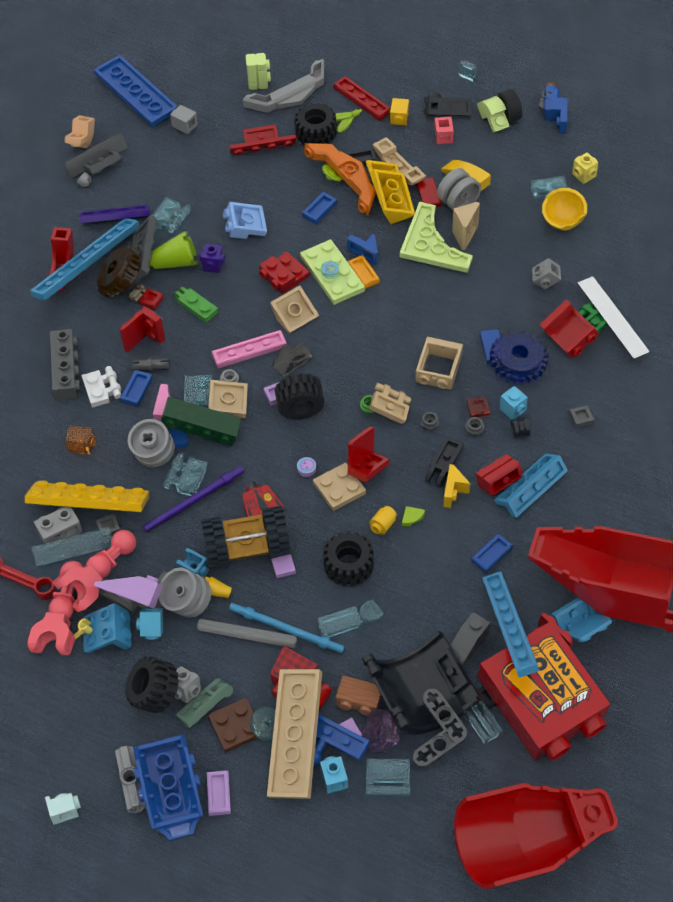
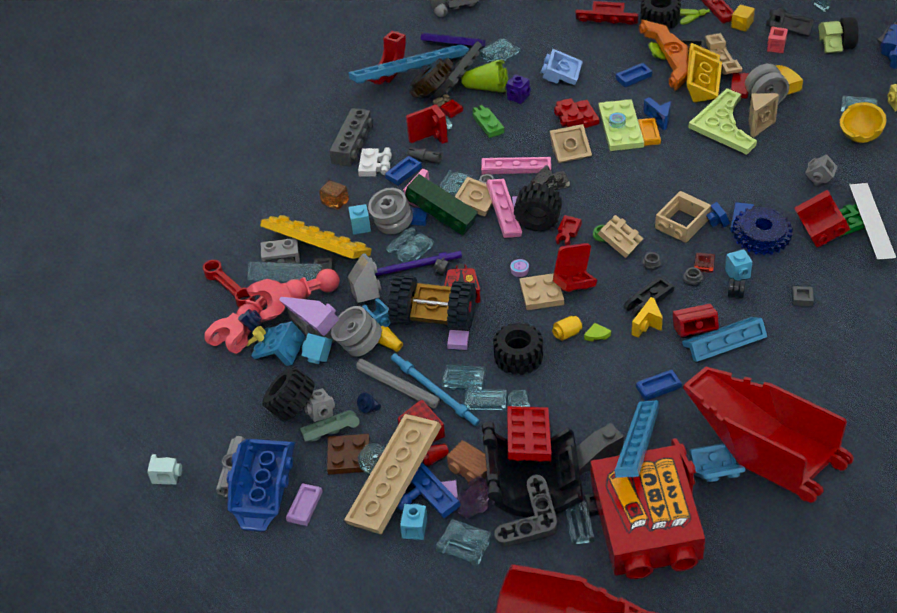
camera: 25 degrees right, 10 degrees down
(71, 615) = (250, 319): none -> dark blue plate
(121, 461) = (359, 219): none -> medium azure brick
(164, 533) = (363, 280): none -> light grey slope
(228, 665) = (367, 403): none -> dark blue plate
(229, 489) = (440, 266): none -> dark grey plate
(261, 404) = (503, 208): none -> bright pink tile
(309, 605) = (464, 377): none -> clear light blue plate
(334, 408) = (568, 227): none -> red plate
(401, 647) = (528, 433): none -> red plate
(471, 351) = (718, 215): none -> blue tile

